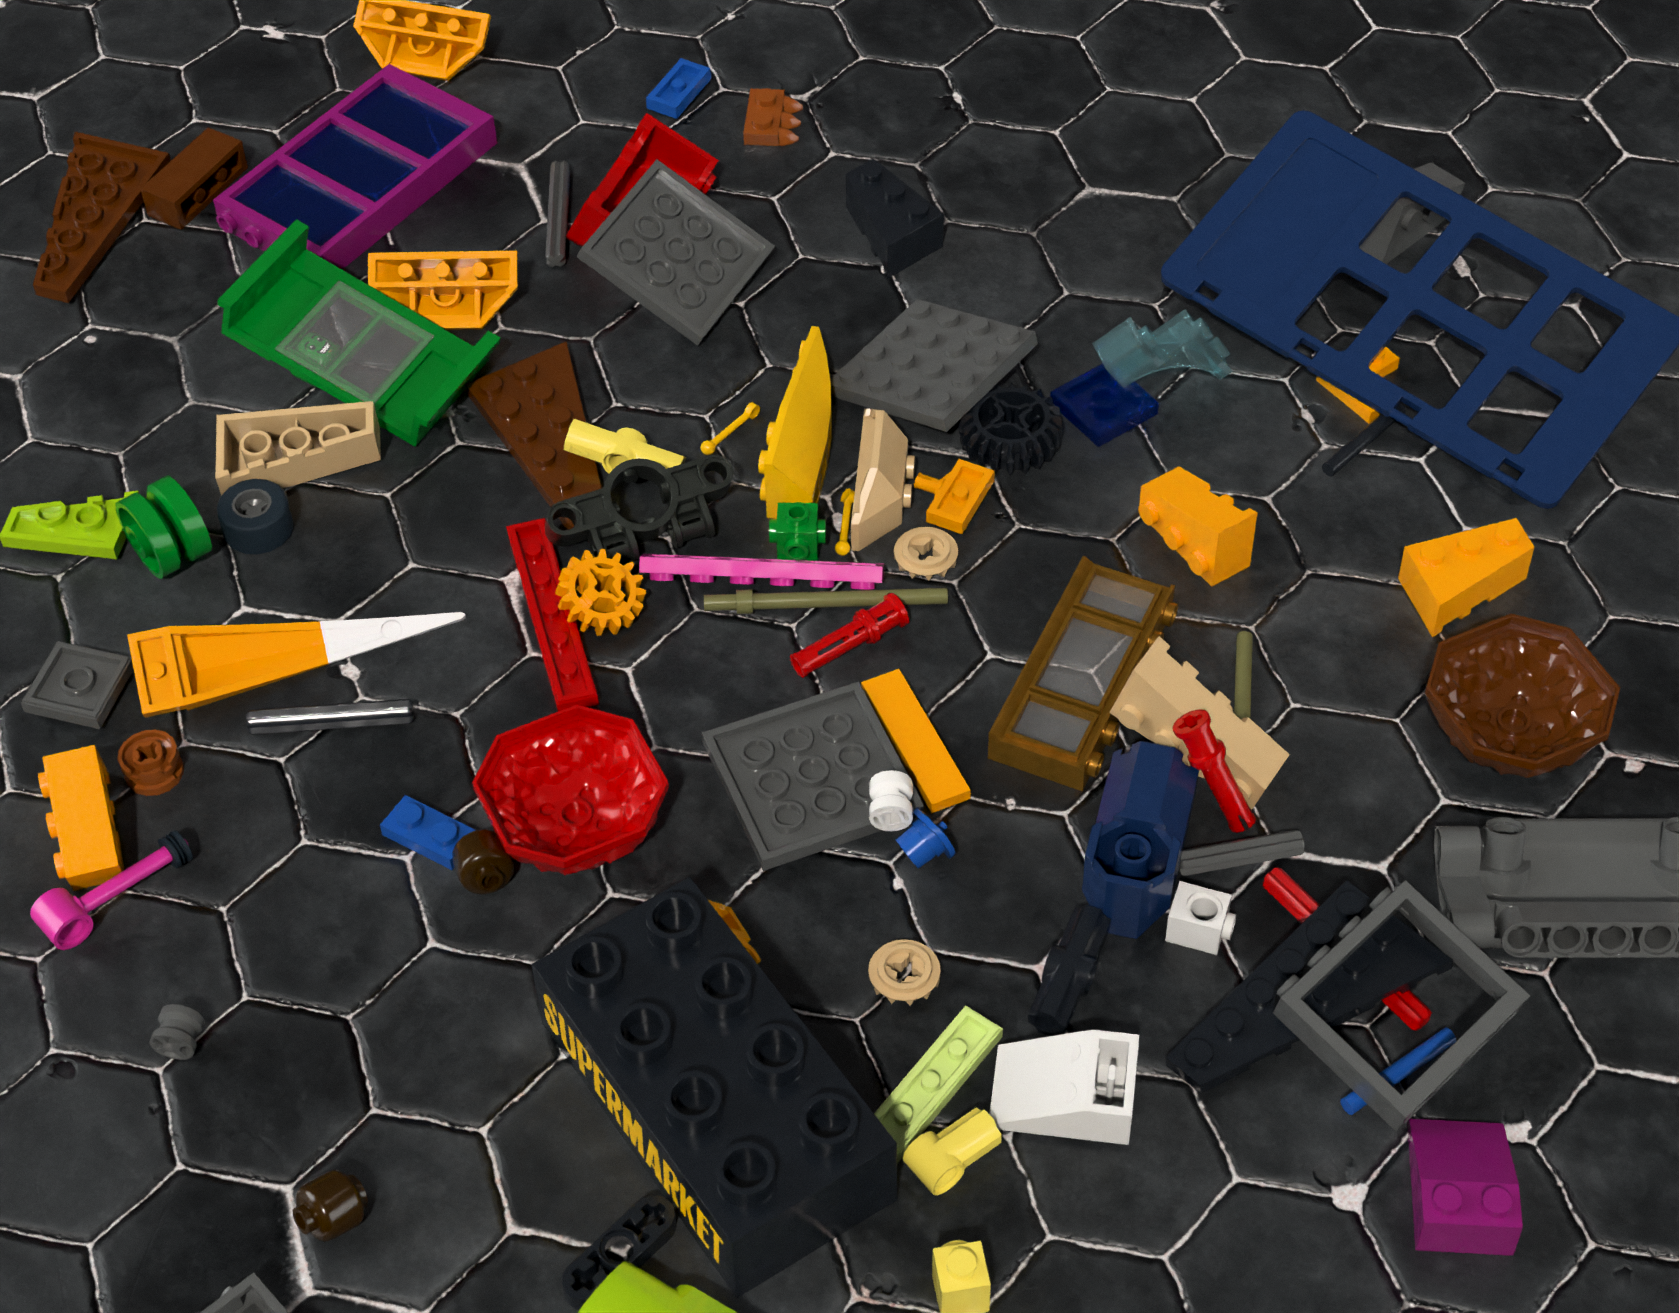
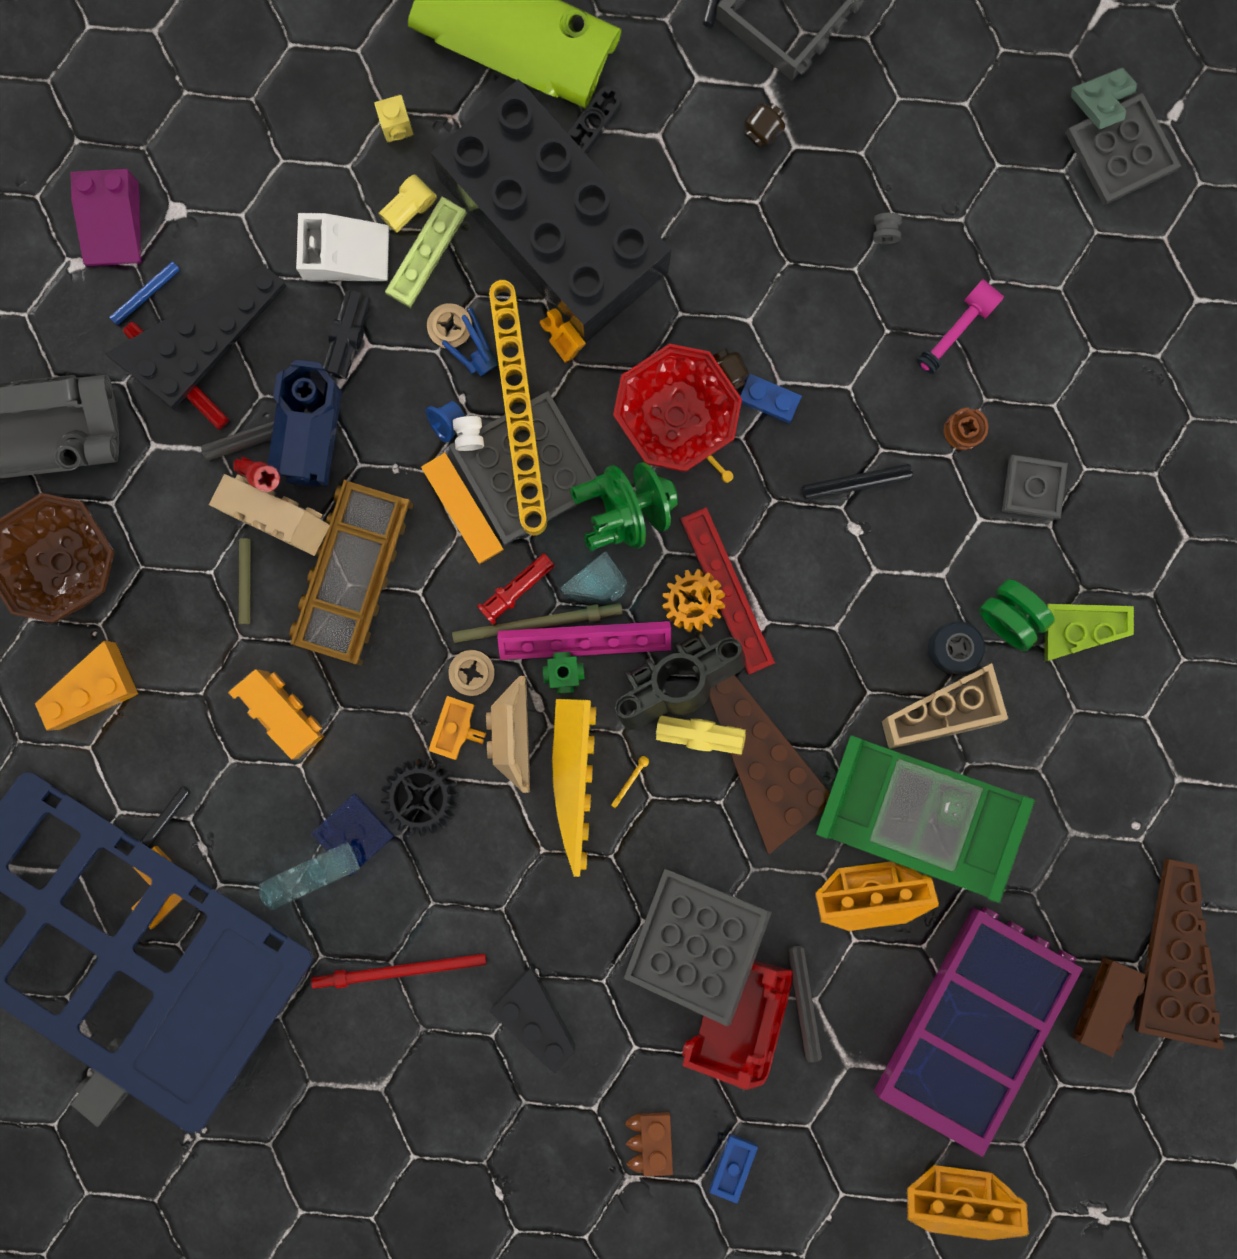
camera: 165 degrees right, 35 degrees up
(81, 817) = (995, 369): light orange wedge -> none
(208, 663) = (950, 509): light orange plate -> none
(681, 678) = (623, 507): none -> green piece
(740, 622) = (596, 582): none -> clear light blue slope
(810, 806) = (517, 394): none -> yellow beam
(842, 546) = (533, 722): yellow hinge -> none
(859, 918) = (483, 358): none -> blue plant
(932, 364) = (484, 853): dark grey plate -> none
(1127, 277) = (343, 978): none -> red bar
(1200, 902) = (253, 375): white brick -> none
(1343, 1059) = (110, 285): dark grey window -> none

